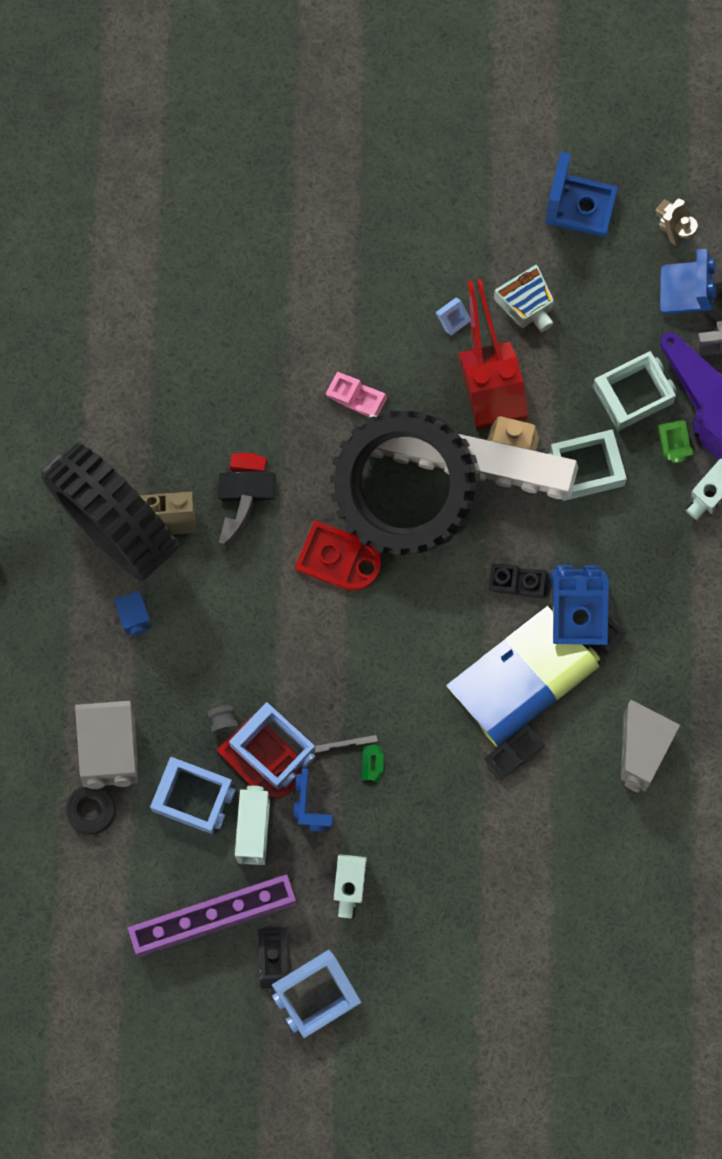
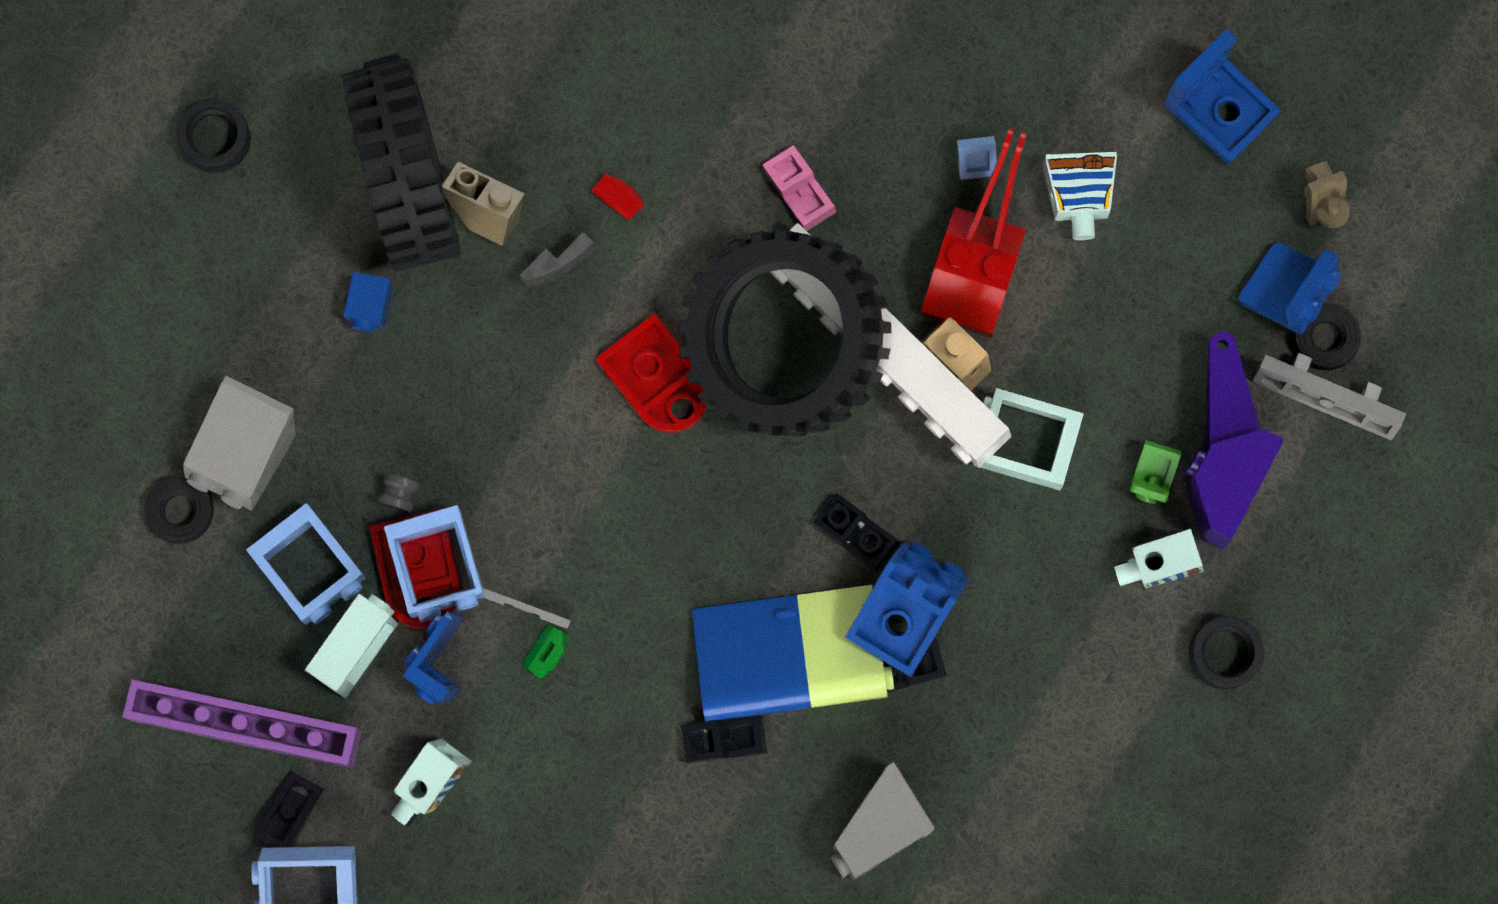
camera: 30 degrees right, 5 degrees up
(258, 485) = (600, 223): black slope -> none
(612, 404) = (1104, 380): light aqua window -> none

